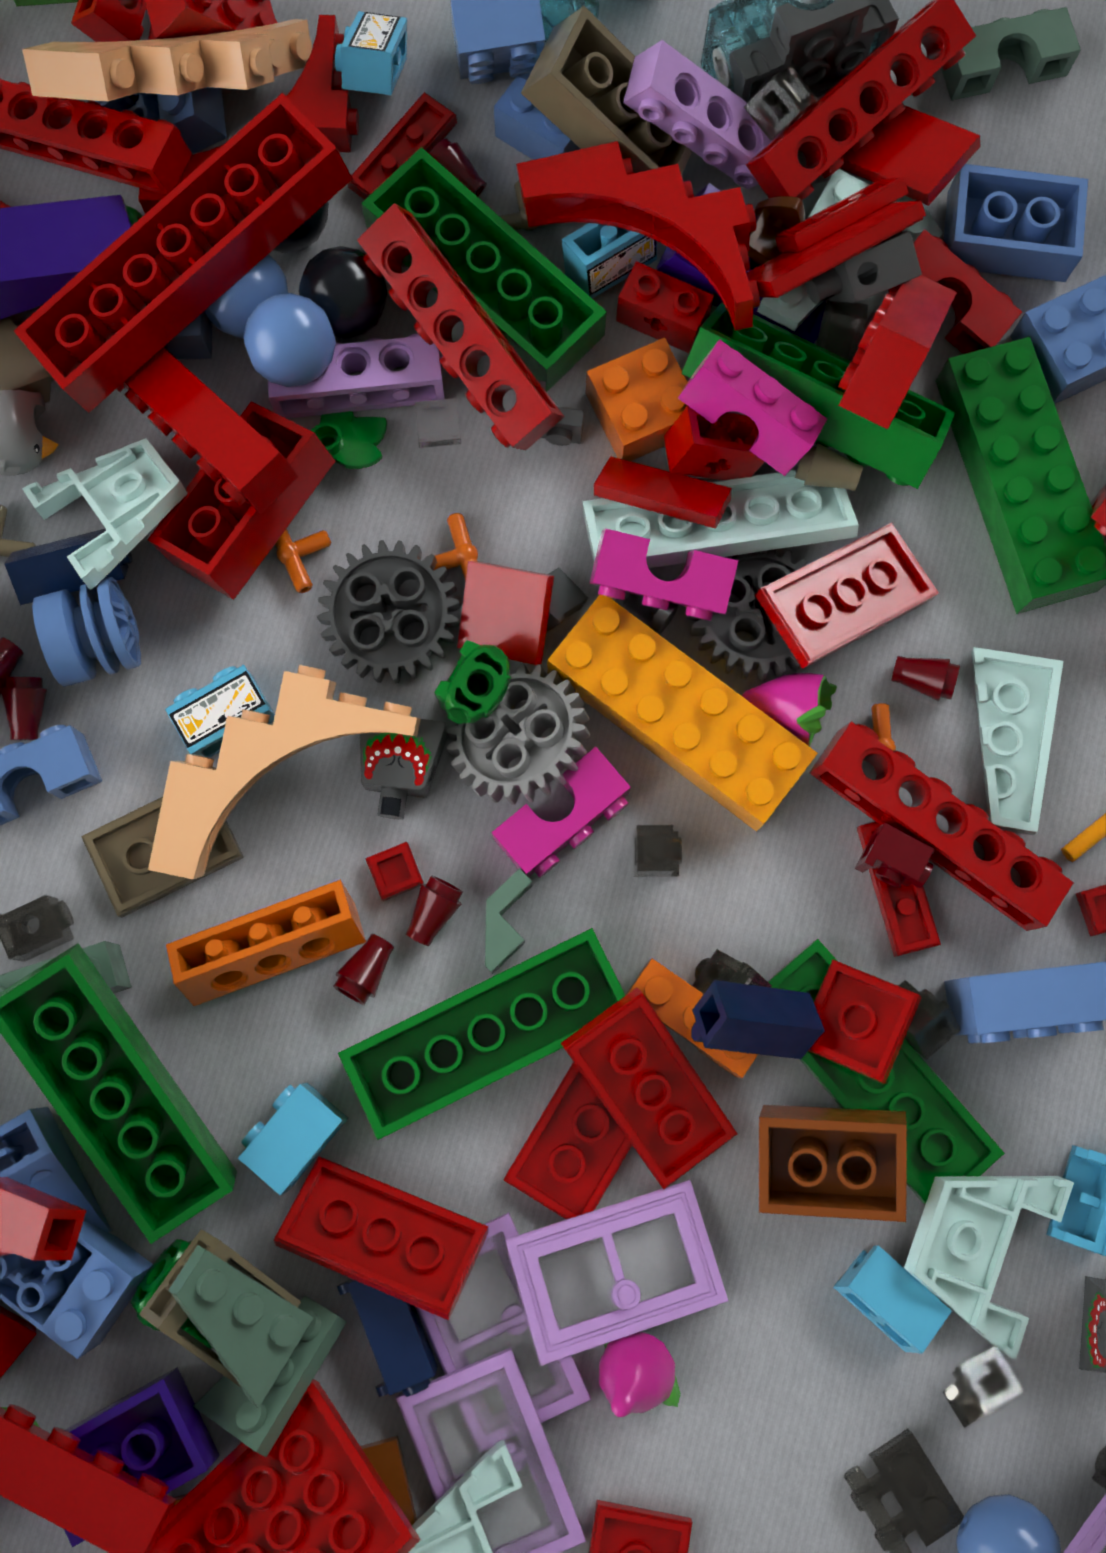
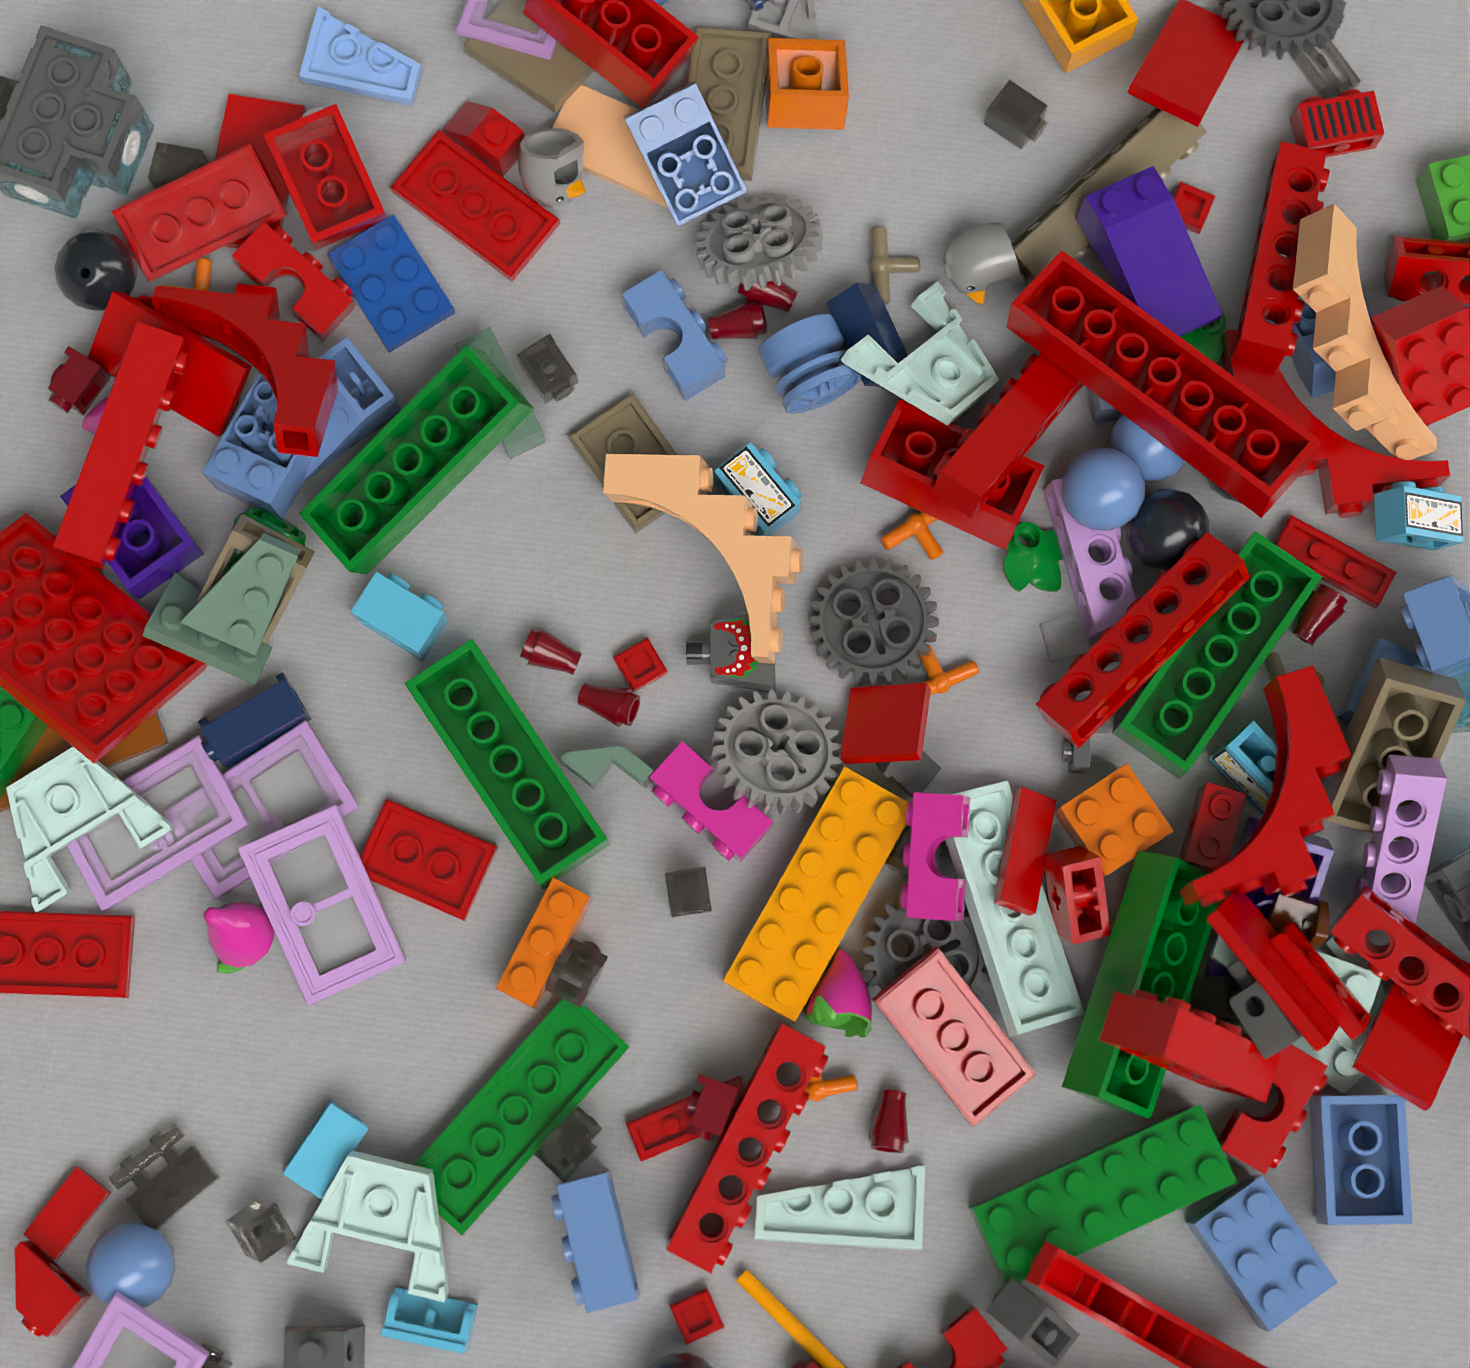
camera: 85 degrees right, 0 degrees up
(265, 943) = (559, 564): orange brick -> none
(382, 1237) = (326, 702): red tile -> none
(475, 683) = (809, 705): green piece -> none
(649, 1087) = (477, 910): red tile -> none
(732, 383) = (1122, 895): dark pink arch -> none
(756, 1020) = (544, 991): dark blue brick -> none
(780, 102) = (1430, 909): clear smoke brick -> none
(828, 469) = (1070, 1000): dark tan cone -> none
(833, 1162) = (433, 1077): dark orange brick -> none
(862, 1020) = (558, 1086): red tile -> none

